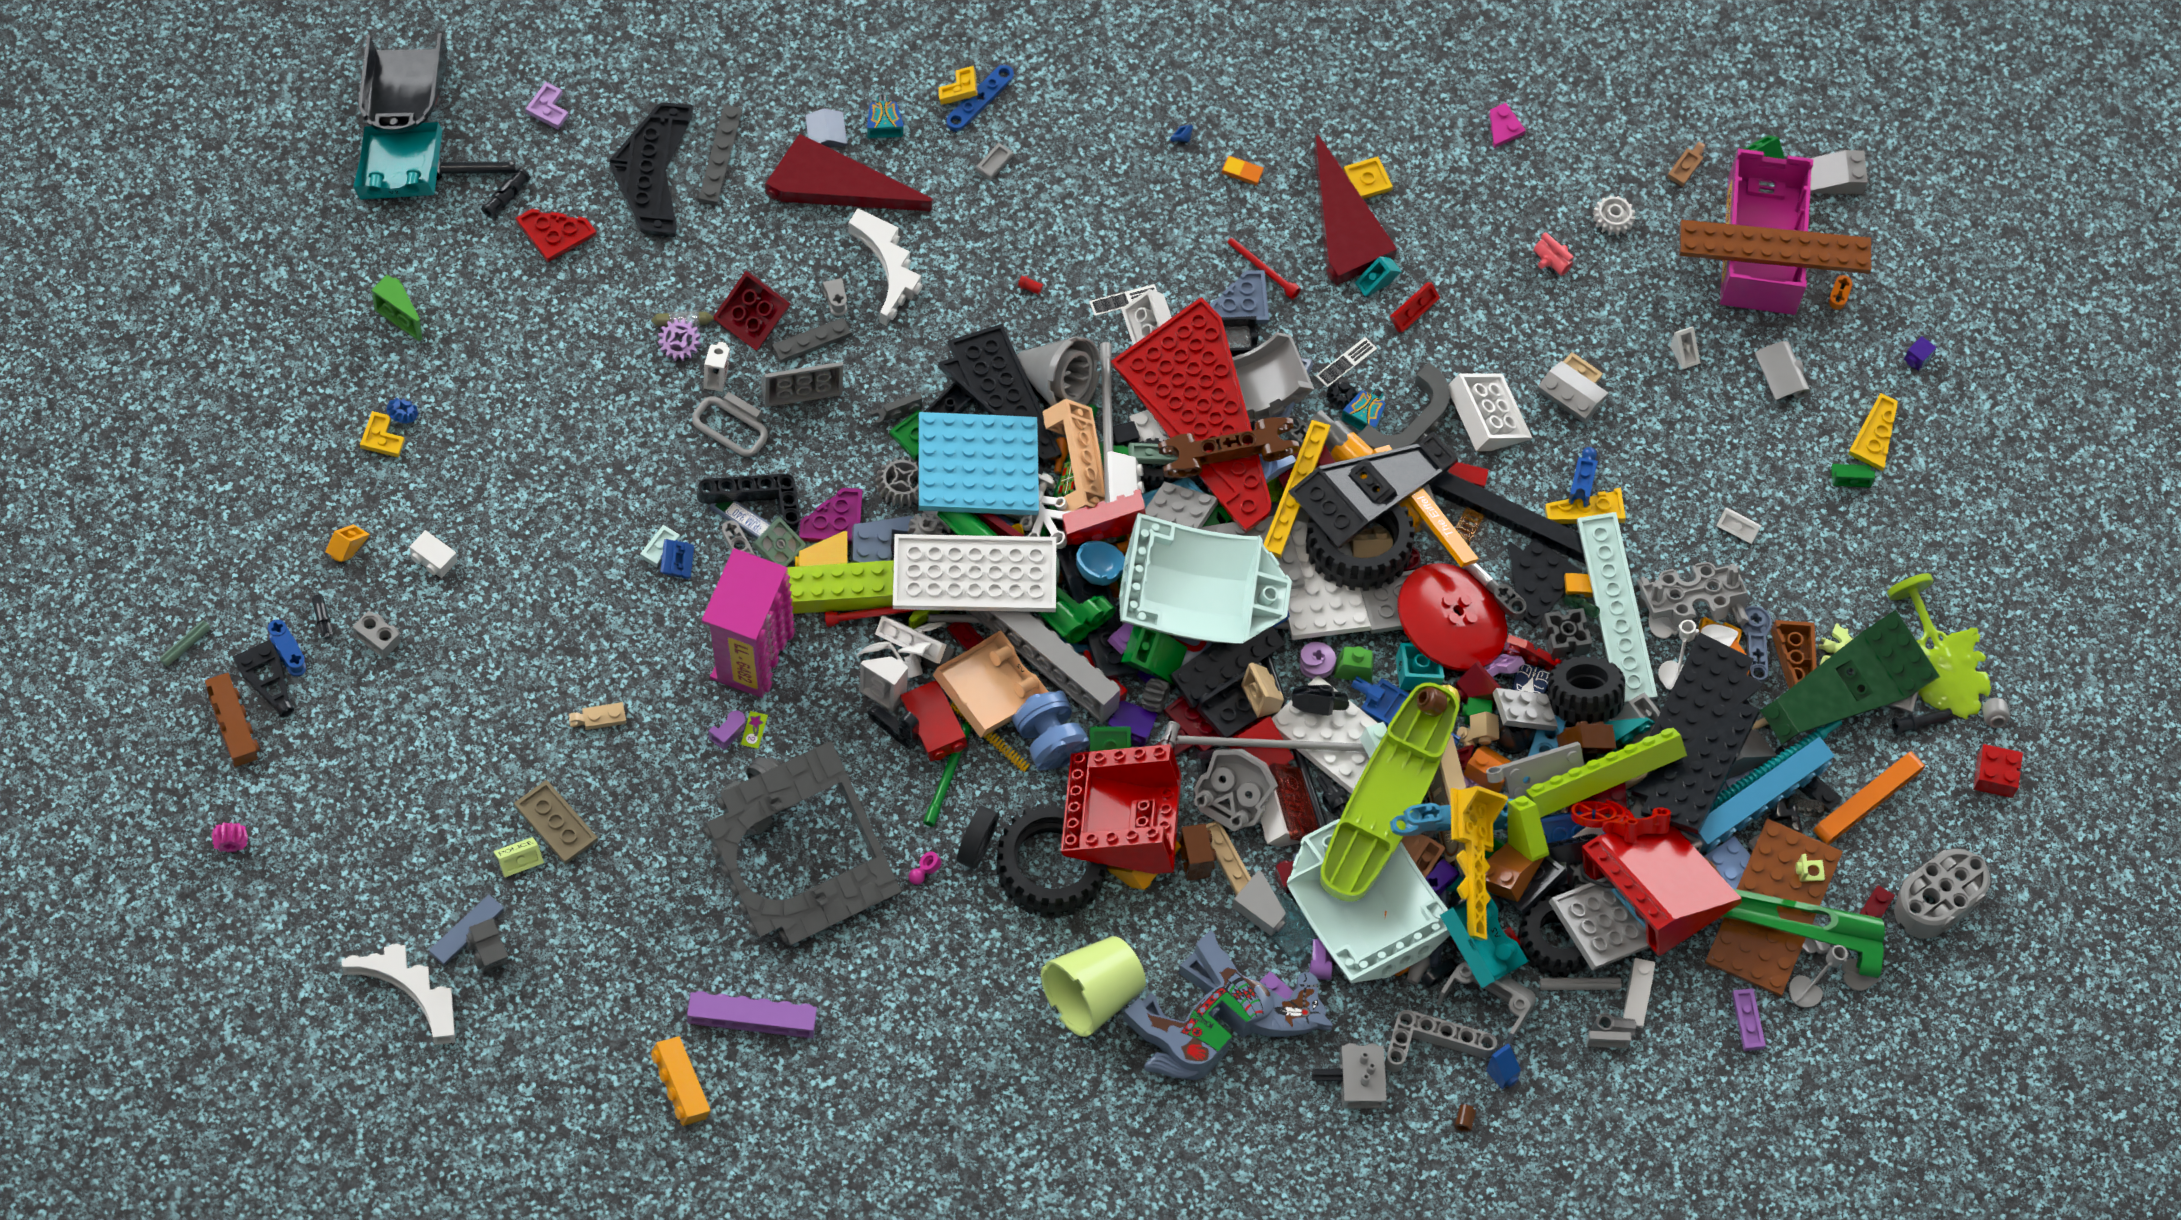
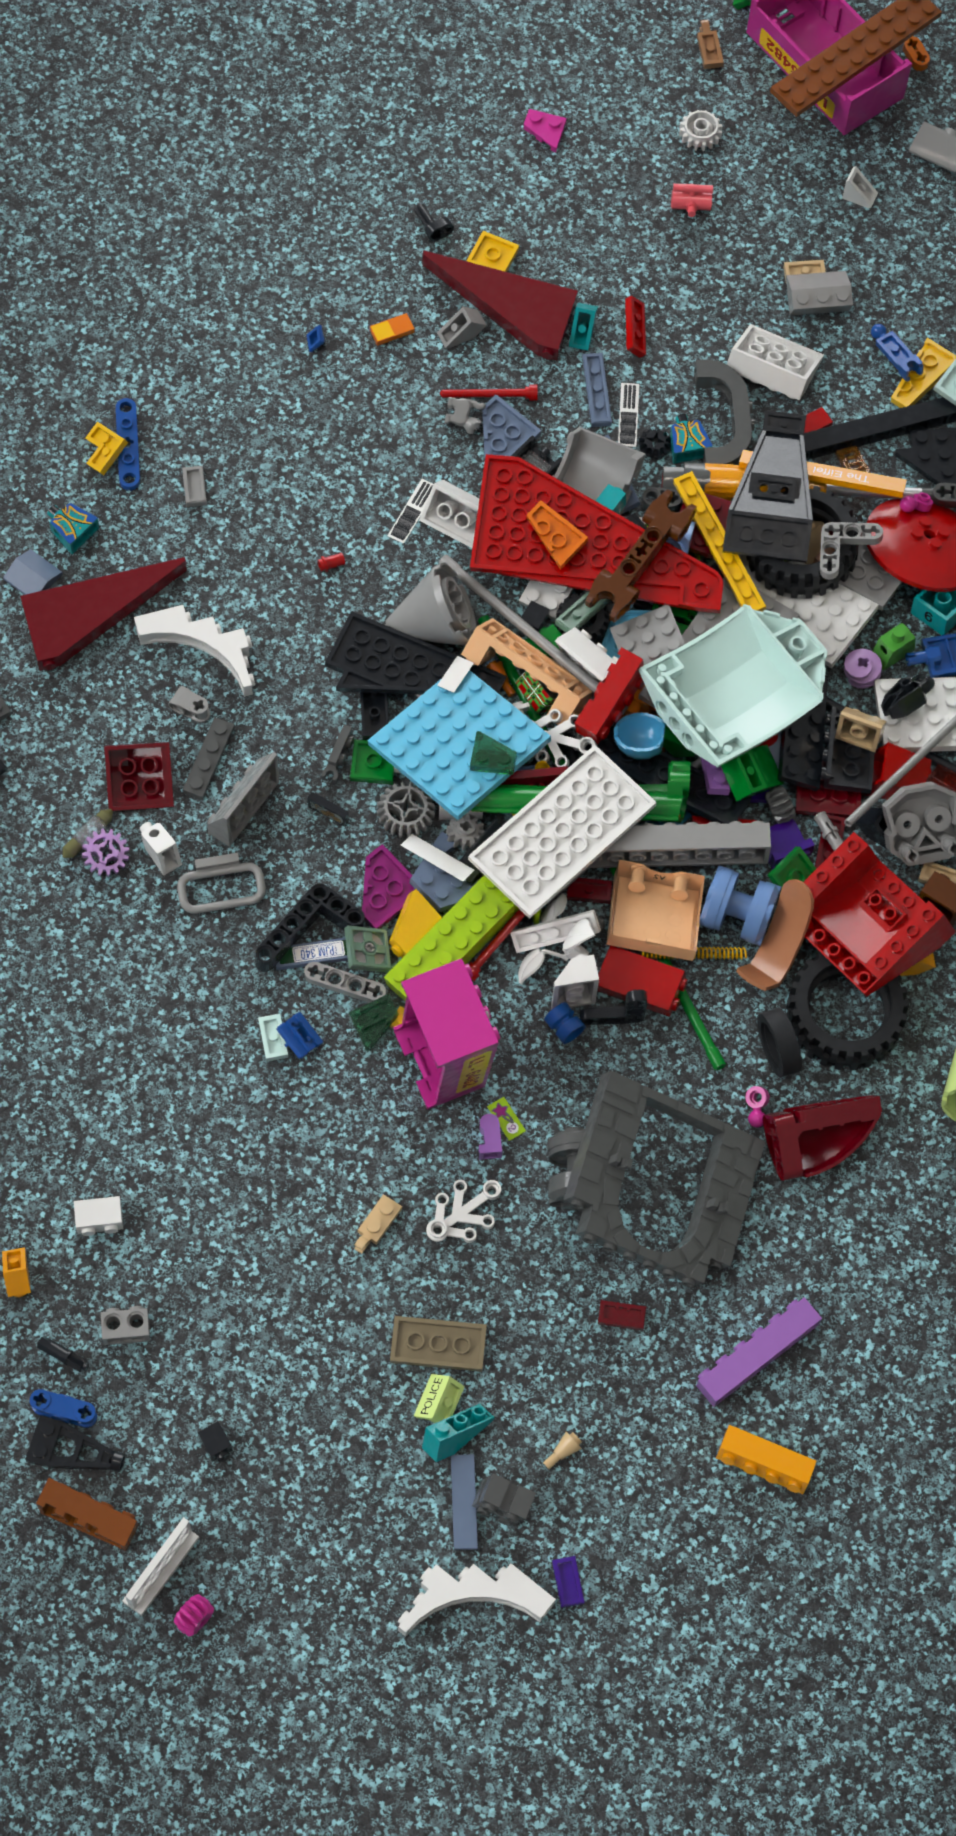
camera: 40 degrees left, 5 degrees up
(231, 795) = (161, 1568): none -> white fence
(355, 751) = (215, 1442): none -> black brick
(477, 1037) = (568, 1582): none -> dark purple tile
(505, 882) = (454, 1432): none -> teal slope
(567, 956) = (567, 1446): none -> tan cone
(660, 758) = (461, 1213): none -> white plant
(690, 912) = (622, 1315): none -> dark red plate
(852, 437) = (328, 809): none -> black tile
(855, 703) = (566, 1025): none -> blue wheel
(886, 525) = (437, 857): none -> white sticker
(942, 919) = (818, 1135): none -> dark red panel
(982, 487) = (492, 756): none -> clear green wing
(1023, 420) = (455, 674): none -> white sticker
(1052, 779) = (782, 937): none -> nougat piece
(1188, 388) = (556, 533): none -> orange wing
(1226, 263) = (461, 413): none -> light grey animal
(1256, 400) = (613, 498): none -> teal brick
(1291, 207) = (461, 327): none -> light grey slope
(1341, 327) = (596, 390): none -> sand blue tile
(1346, 128) = (434, 229): none -> black piece
(1375, 551) = (835, 540): none -> light grey beam
(1479, 586) = (919, 501): none -> dark pink plate

